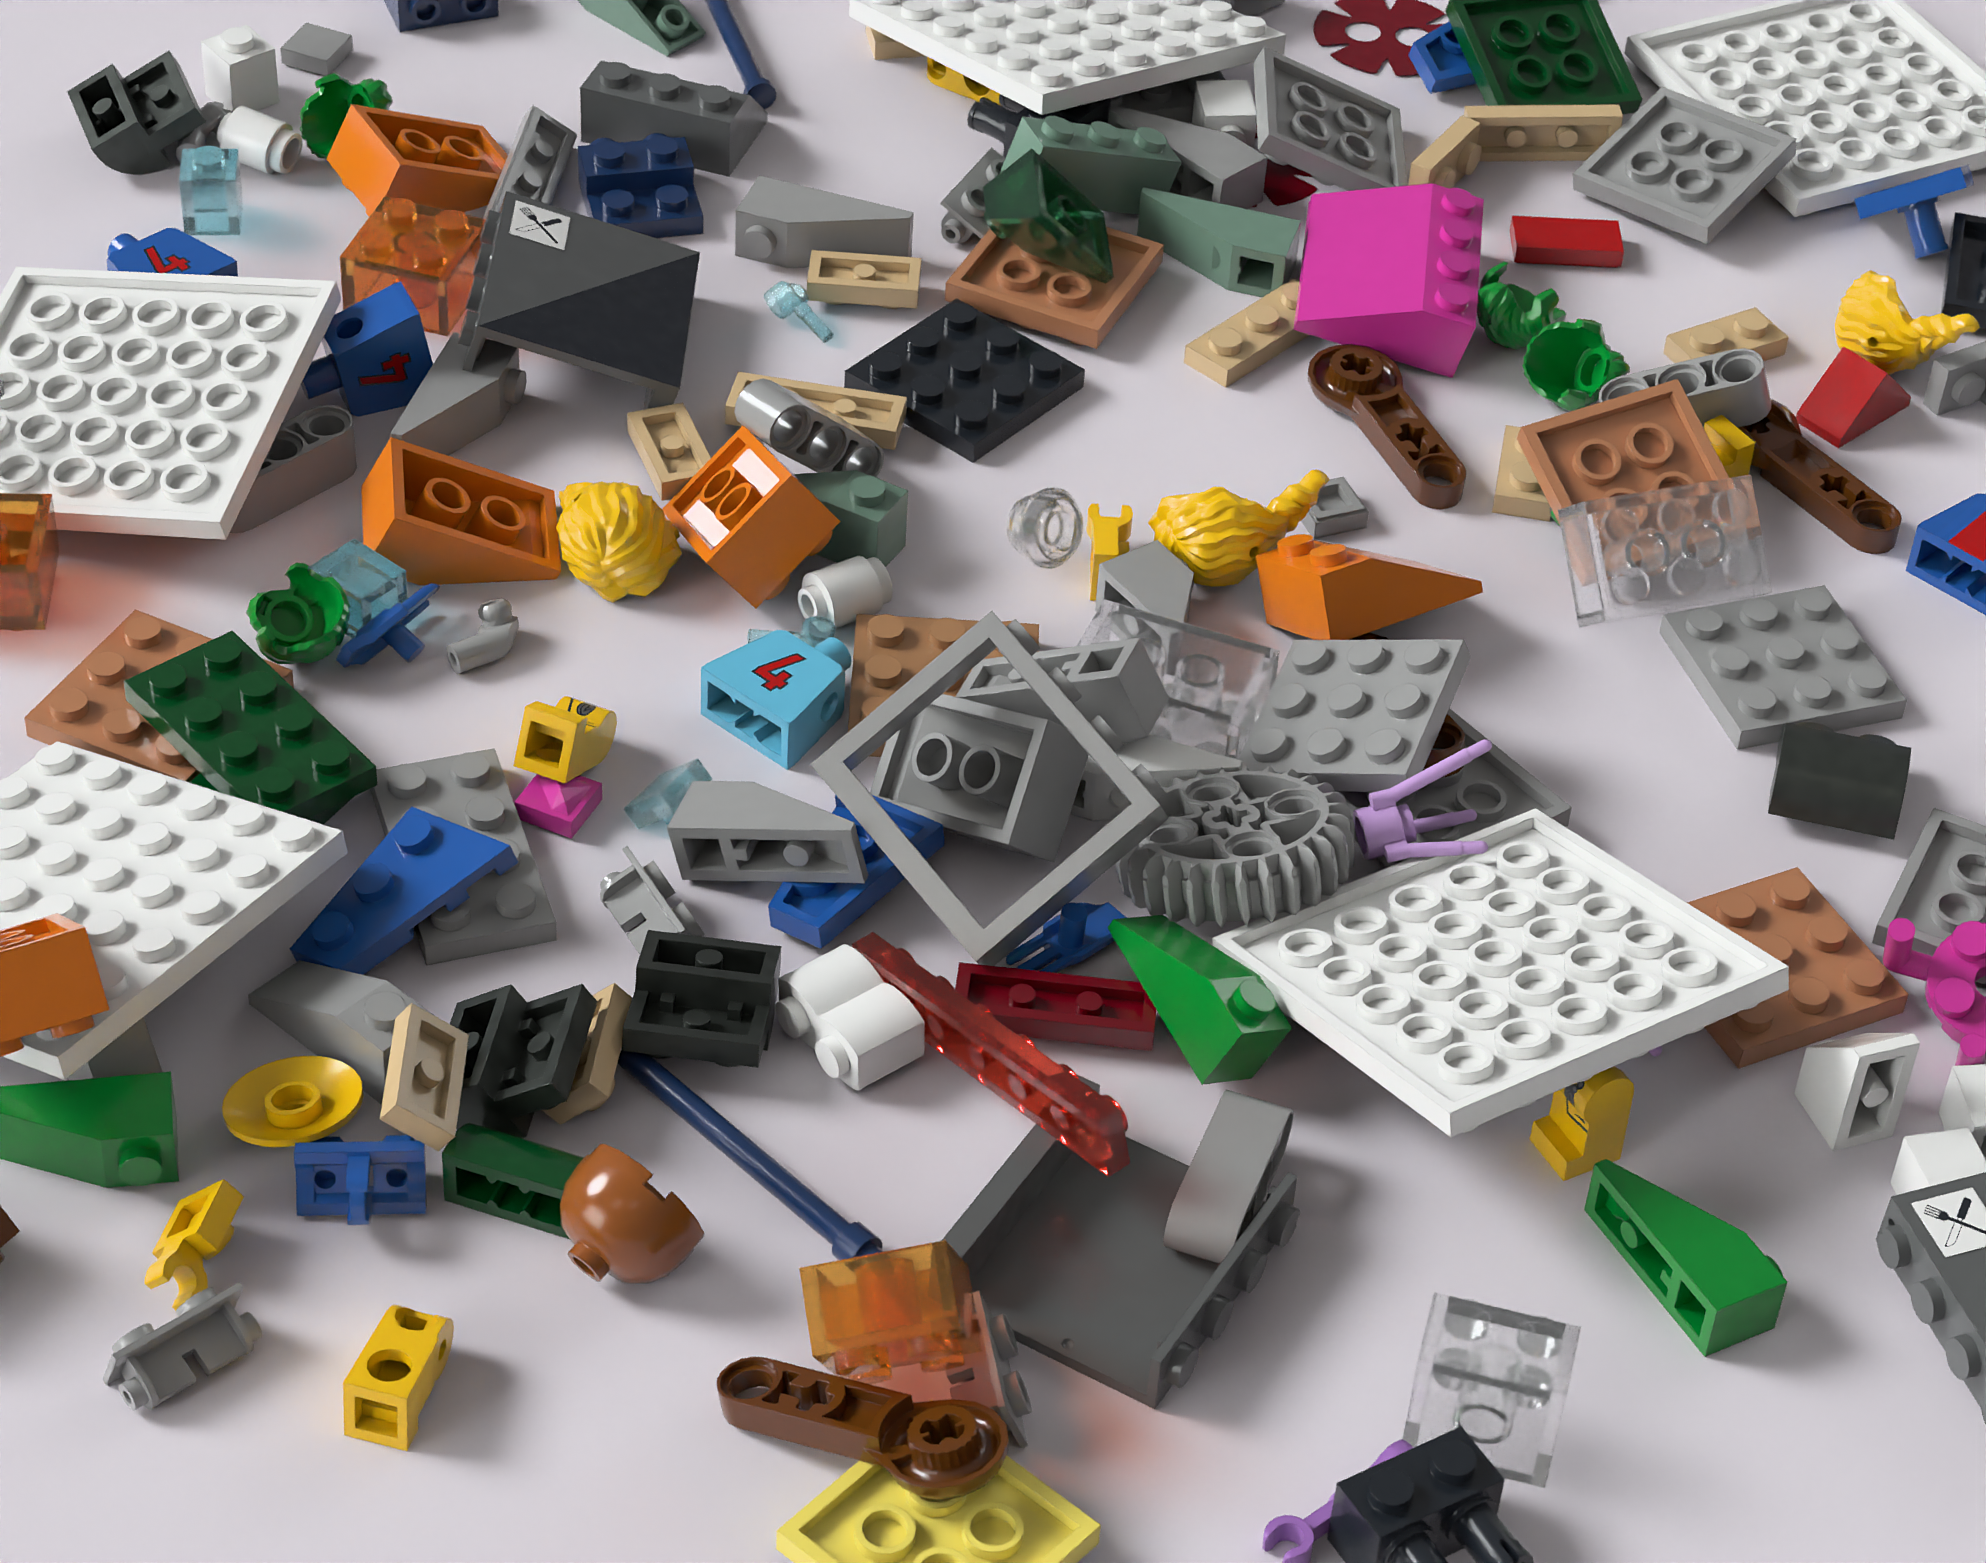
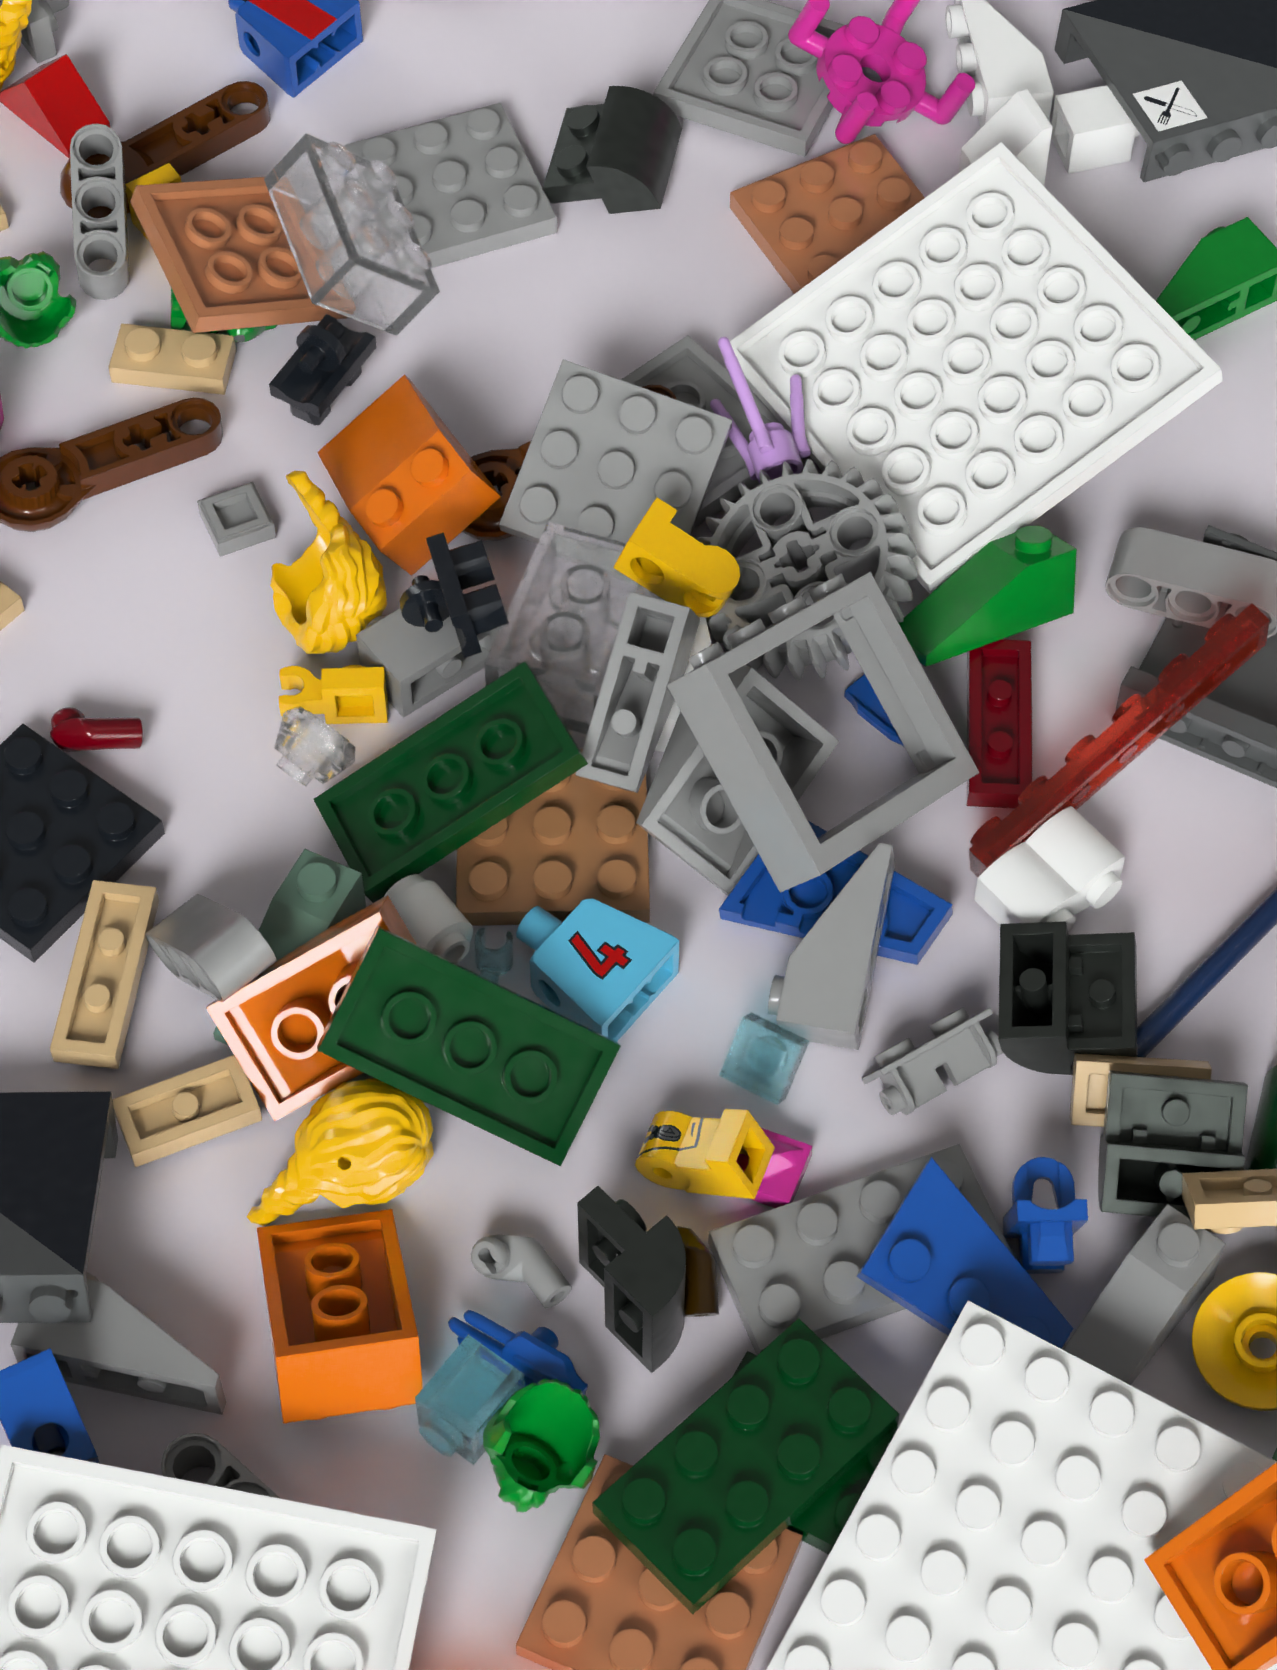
camera: 90 degrees left, 15 degrees up
(437, 670) = (638, 1272): none -> pearl dark grey brick
(444, 935) = (1044, 1233): none -> blue hips
(466, 735) = (700, 1277): none -> dark brown arm
(678, 568) = (468, 1046): none -> dark green plate
(979, 573) = (450, 781): none -> dark green plate
(1071, 410) = (76, 733): none -> dark red arm
(1183, 578) = (432, 601): none -> black hips
(1210, 712) = (677, 564): none -> yellow leg
(1506, 544) = (321, 367): none -> black hips

